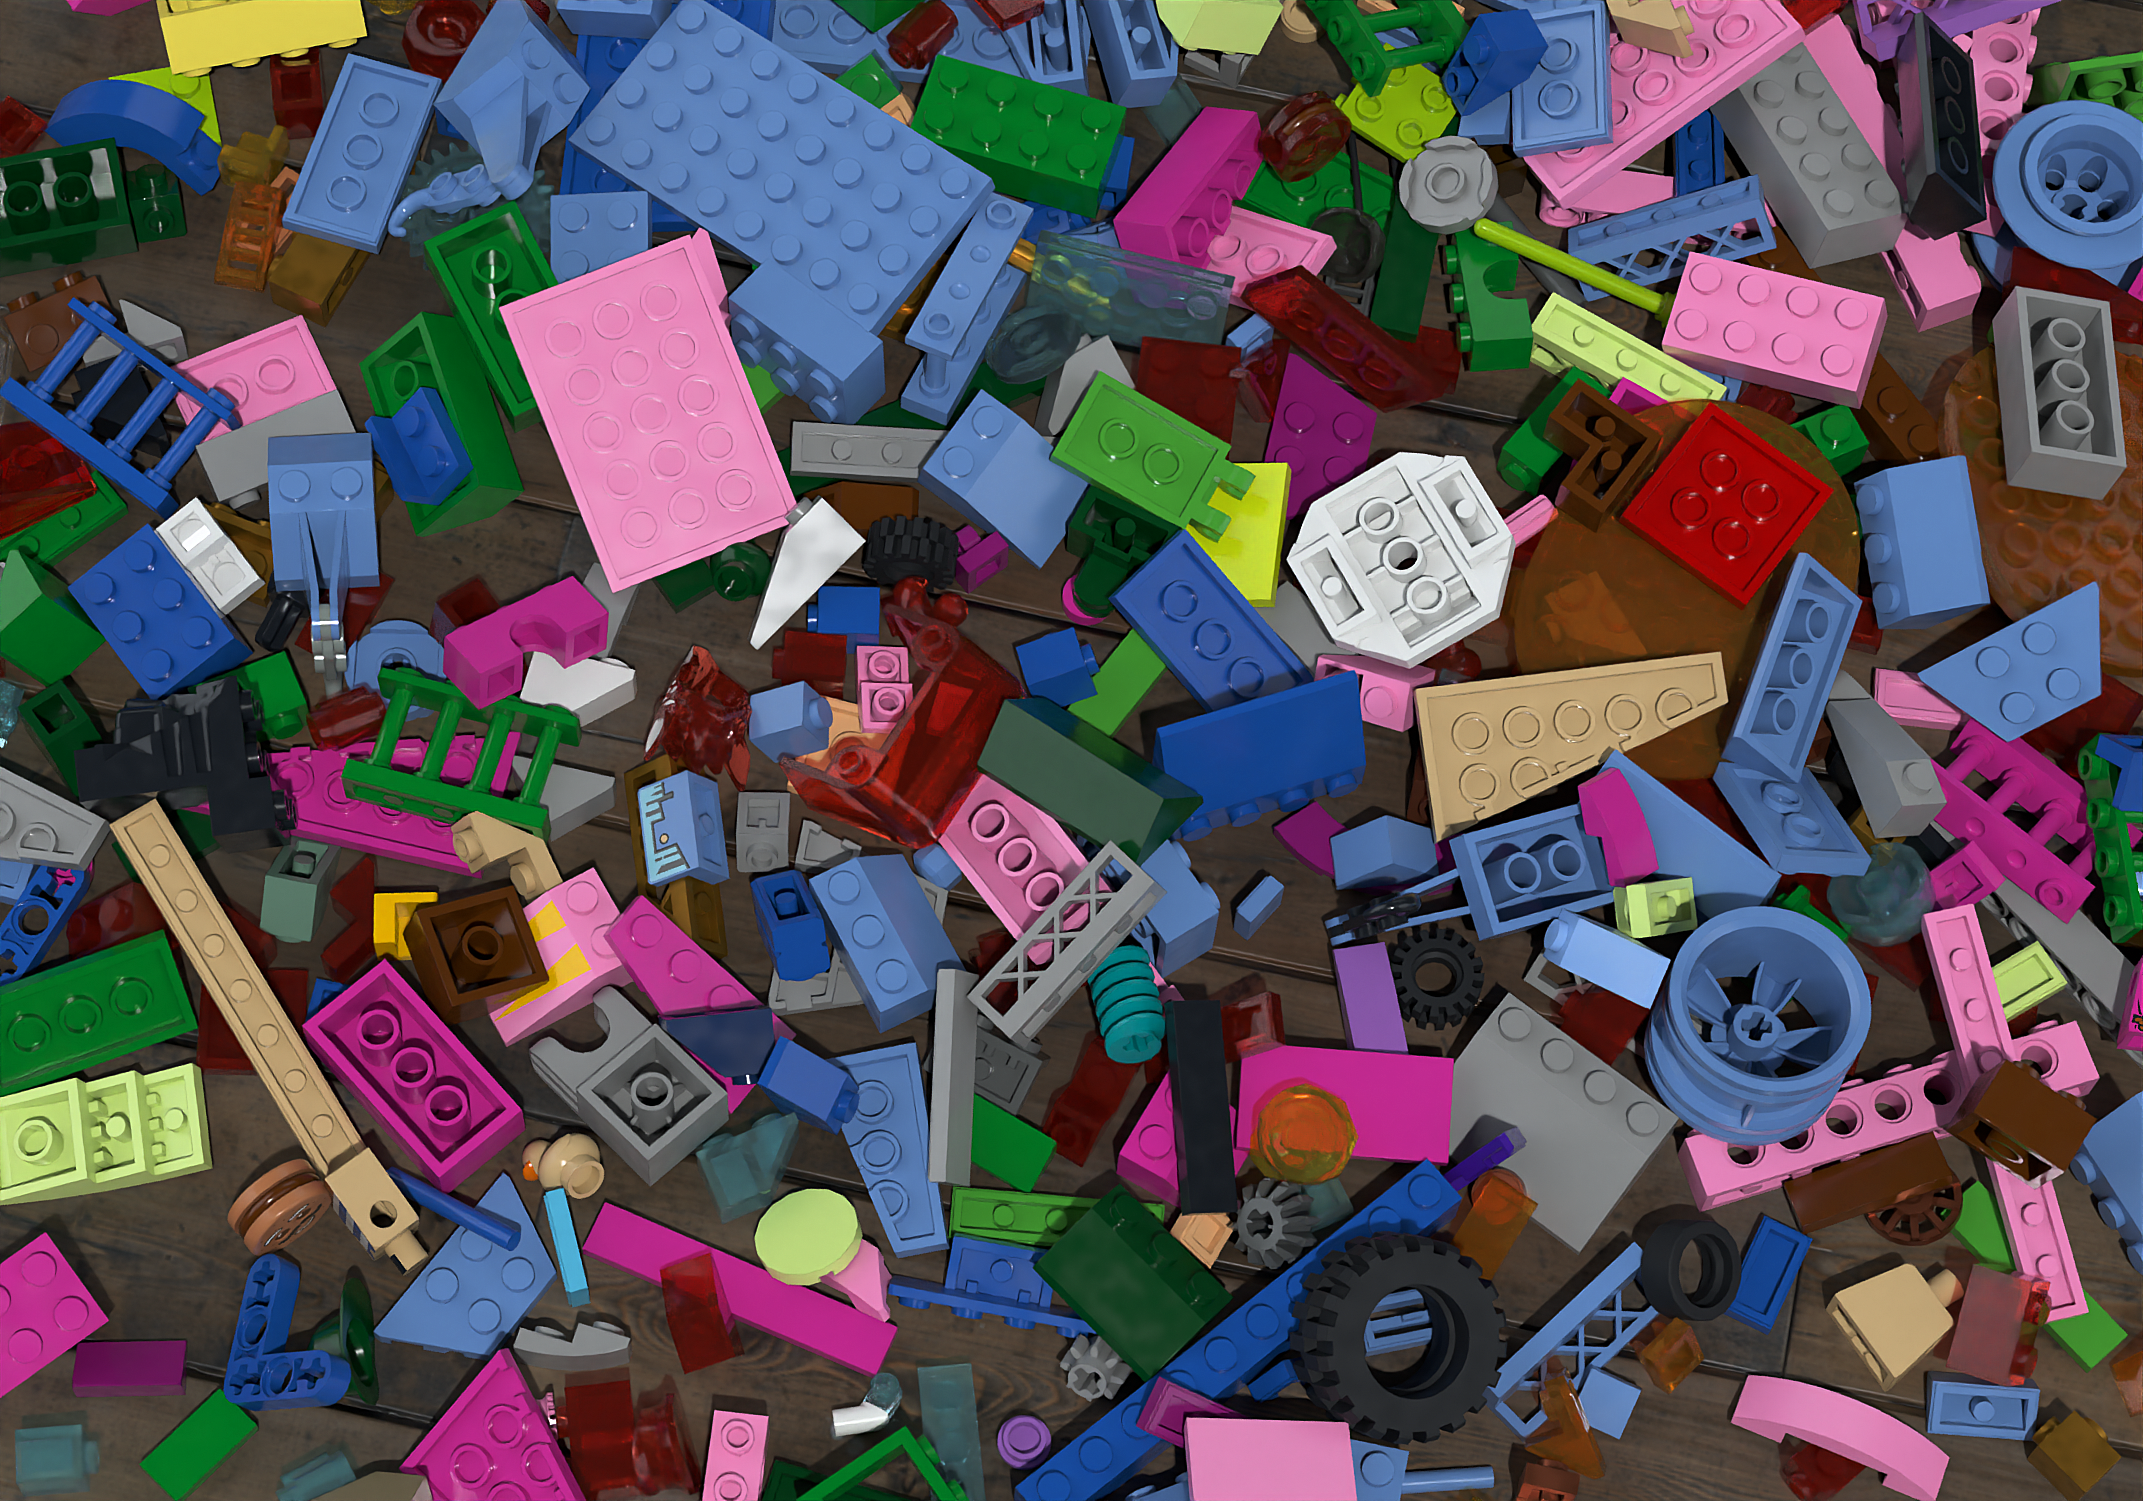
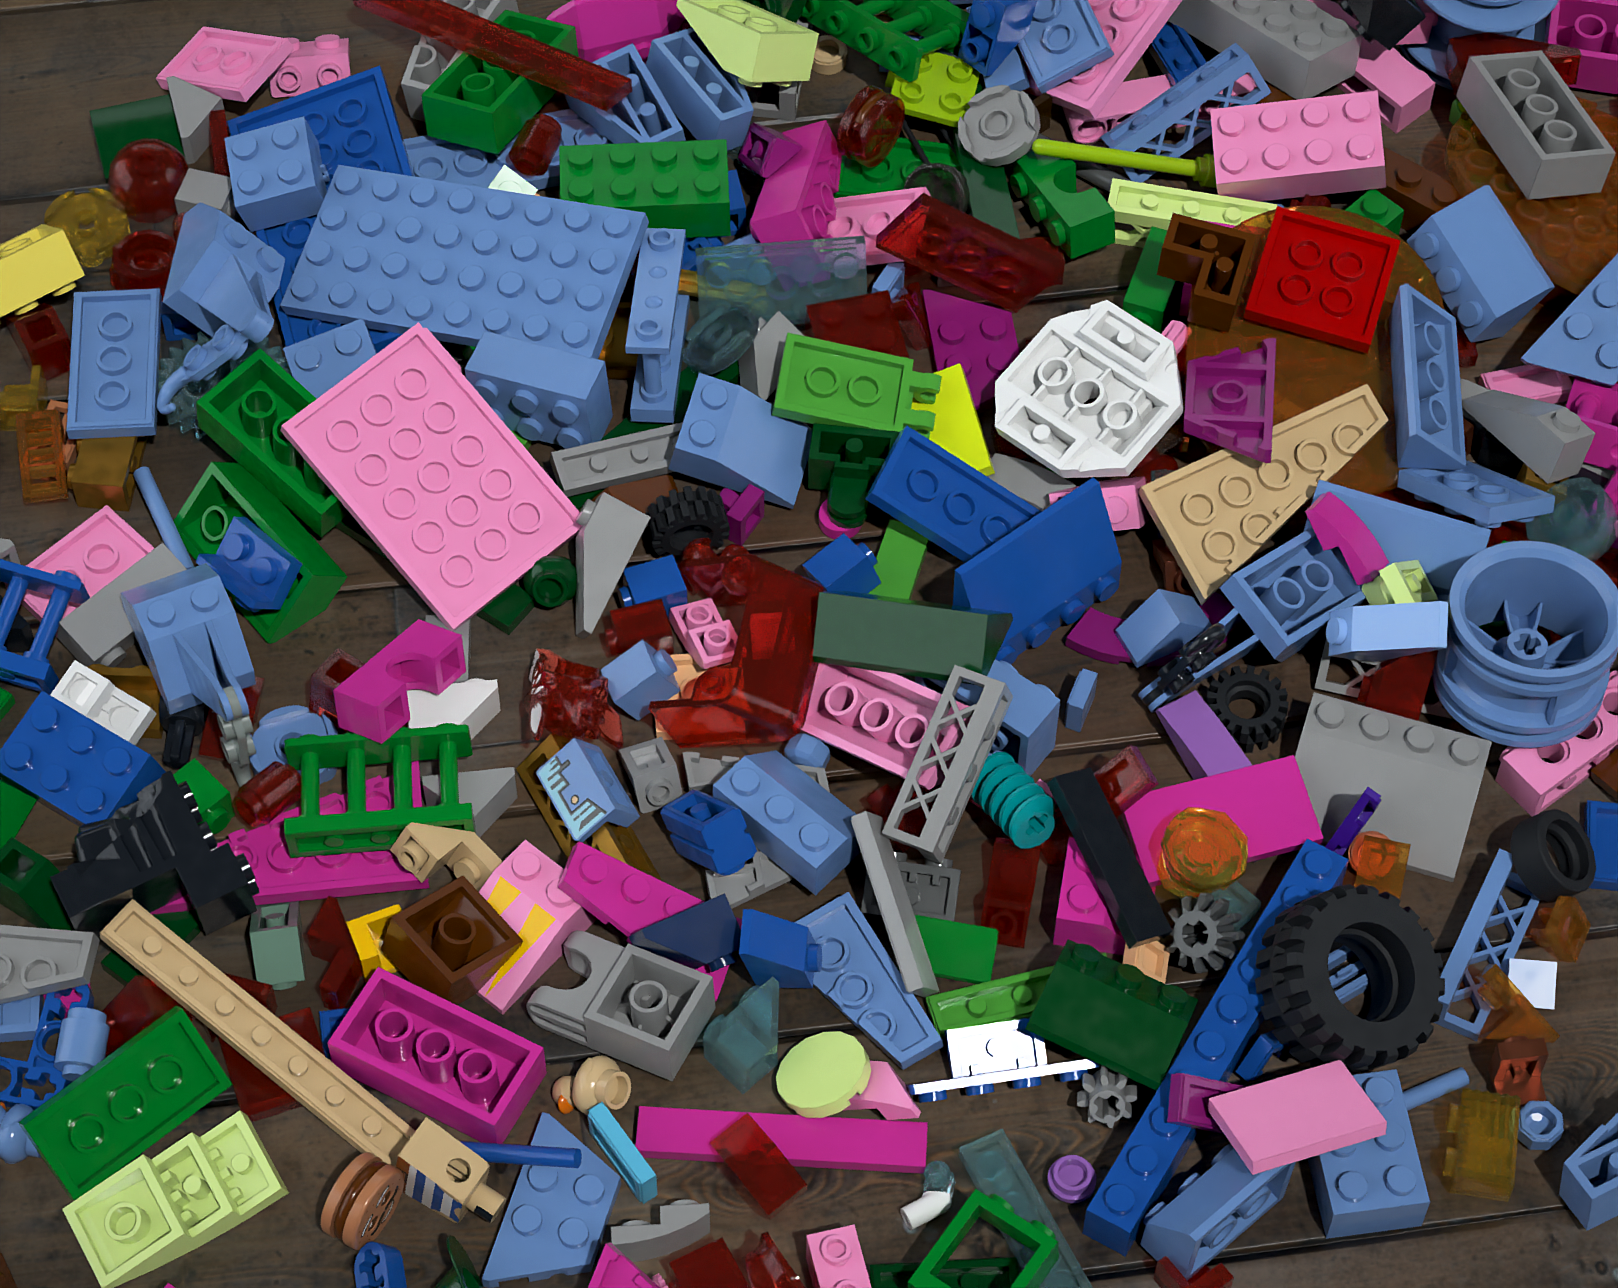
camera: 15 degrees left, 10 degrees down
(54, 934) = (81, 1042): none -> medium blue brick
(355, 355) = (161, 515): none -> medium blue bar
(1177, 126) = (766, 150): none -> magenta slope
(1562, 620) = (1233, 400): none -> magenta wing

